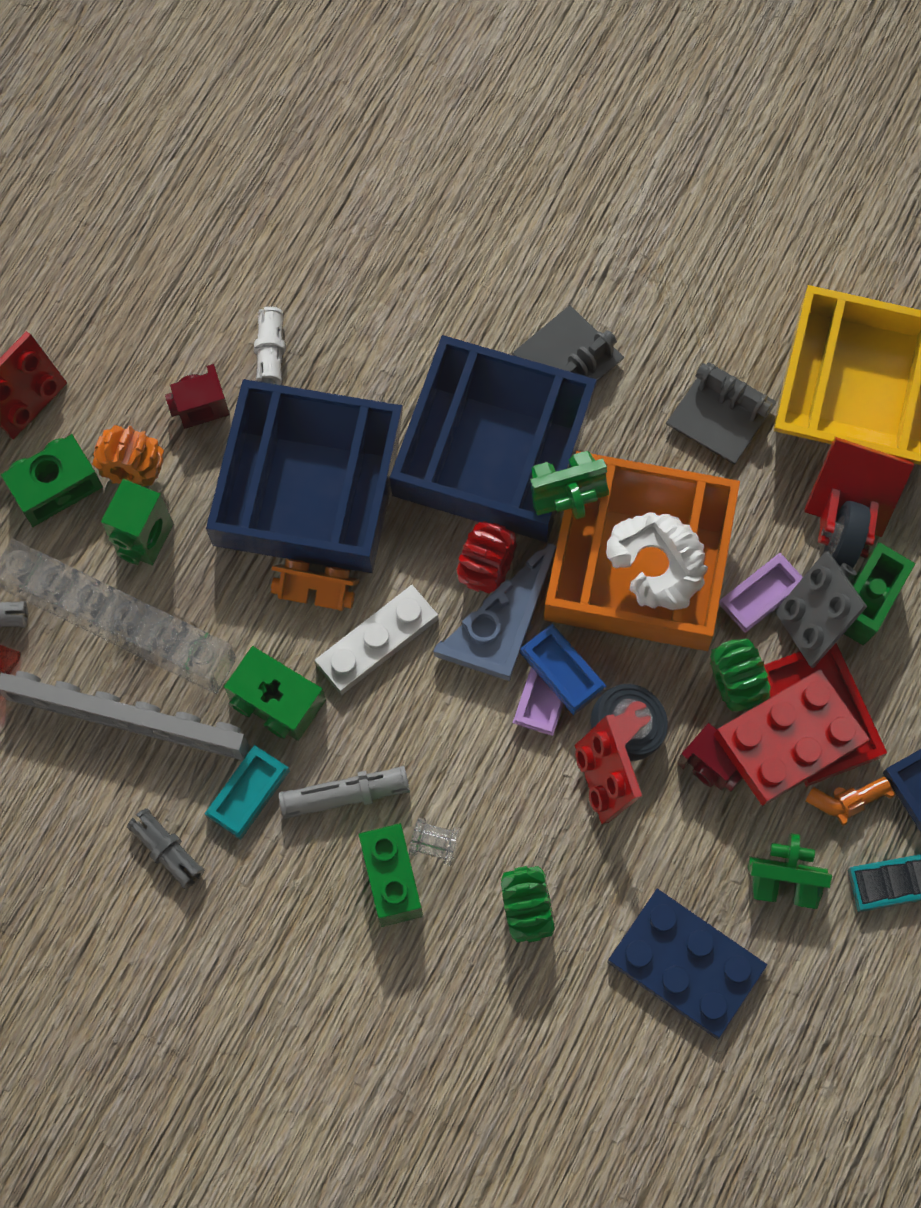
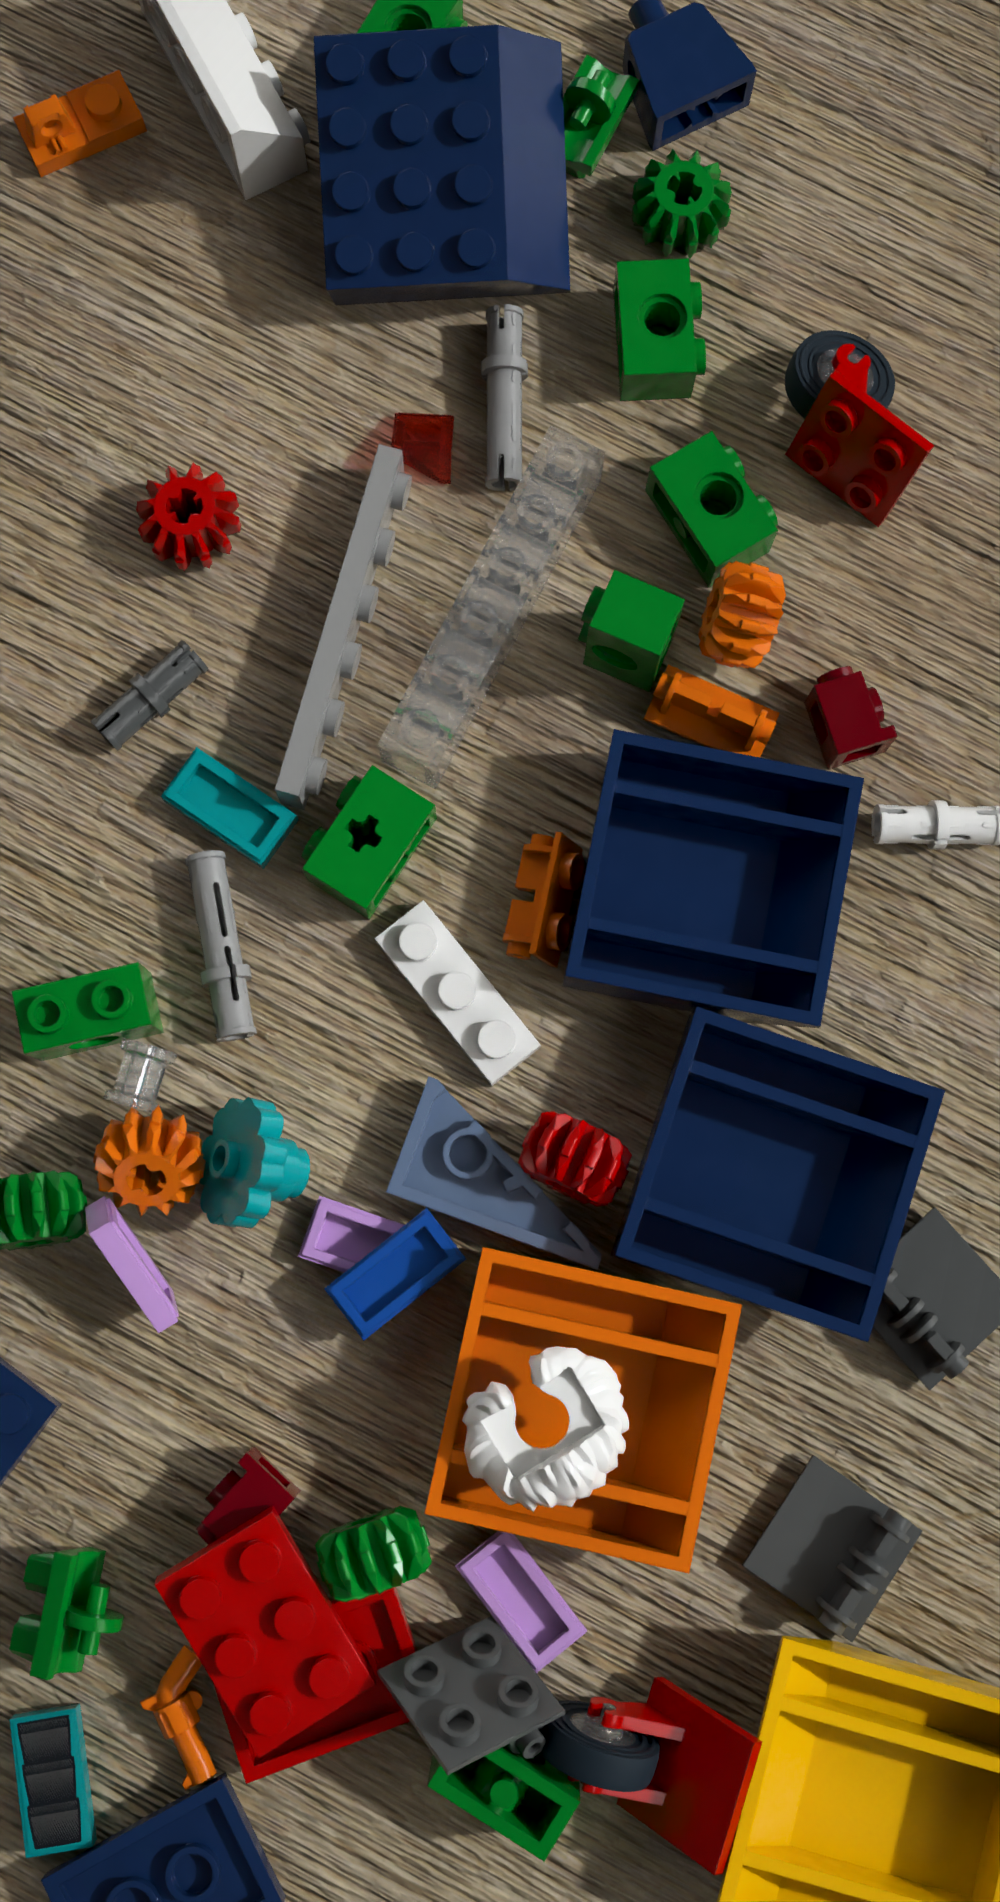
camera: 85 degrees right, 10 degrees up
(26, 811) = (174, 503): none -> red gear
(193, 481) = (710, 714): none -> orange hinge
(492, 827) = (149, 1161): none -> orange gear
(493, 764) = (249, 1164): none -> teal plant
(560, 833) = (132, 1263): none -> lavender tile
(570, 487) = (664, 1294): green hips -> none
(625, 727) = (301, 1367): red plate -> none

